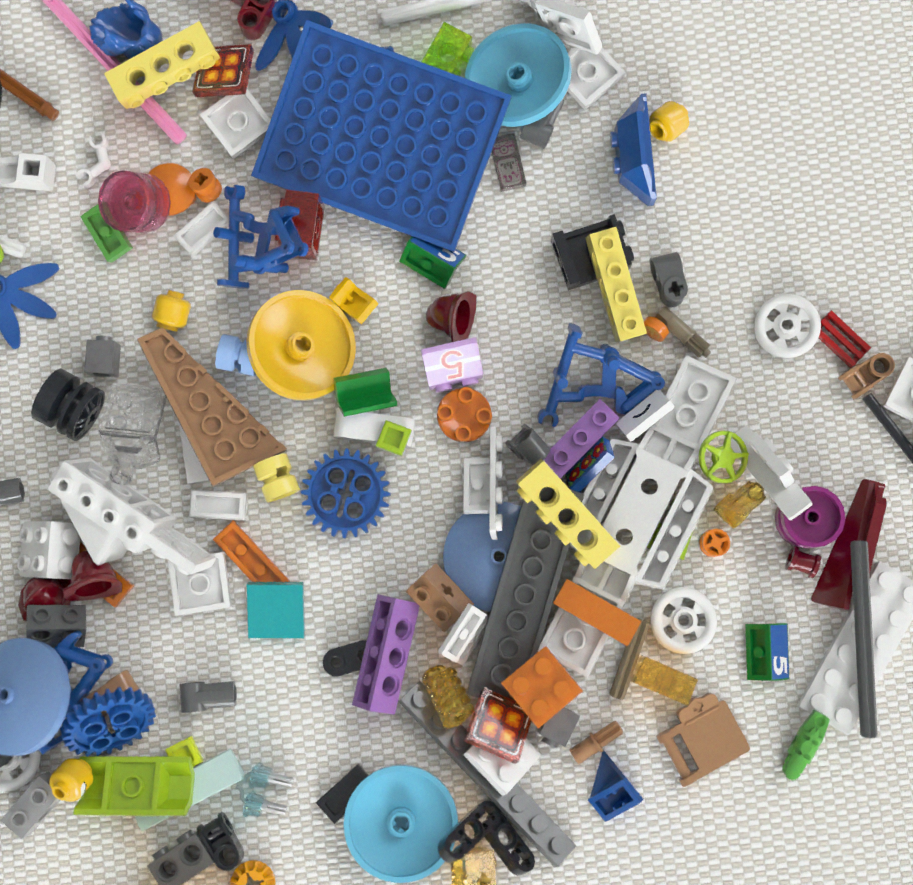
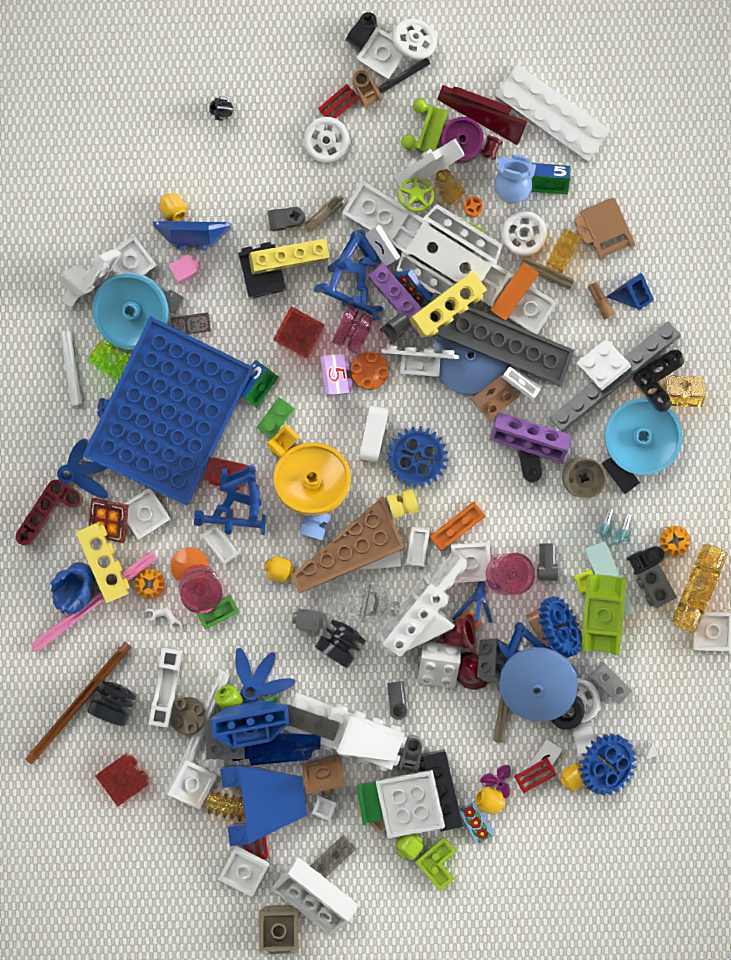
camera: 90 degrees left, 5 degrees up
(71, 779) = (596, 655): yellow head -> none
(141, 149) = (150, 574): none -> light orange gear
(151, 601) = (479, 597): none -> blue plant
(183, 641) = (510, 574): none -> clear pink wheel
(205, 185) = (193, 536): orange wheel -> none
(275, 610) = (493, 511): teal tile -> none
(317, 743) = (587, 488): none -> dark tan wheel
(364, 392) = (349, 438): green panel -> none
(386, 289) = (275, 417): none -> bright green plate
(393, 438) = (383, 419): lime tile -> none
(448, 695) = (561, 397): clear yellow piece -> none
(453, 314) = (299, 372): dark red piece -> none
(498, 726) = (584, 364): tile -> none
(508, 309) = (299, 333): none -> clear red brick
(520, 383) = (354, 330): none -> clear pink wheel
(542, 687) = (561, 332): orange brick -> none
(559, 728) = (587, 325): flat silver brick -> none
(584, 145) = (184, 268): none -> bright pink brick
(656, 329) = (320, 232): orange tile -> none
(762, 597) = (514, 178): none -> light blue tile
(805, 744) = (614, 160): bright green hinge -> none
(815, 175) = (221, 108): none -> black gear
(822, 473) = (431, 130): none -> lime gear
(864, 639) = (547, 113): dark grey axle -> none

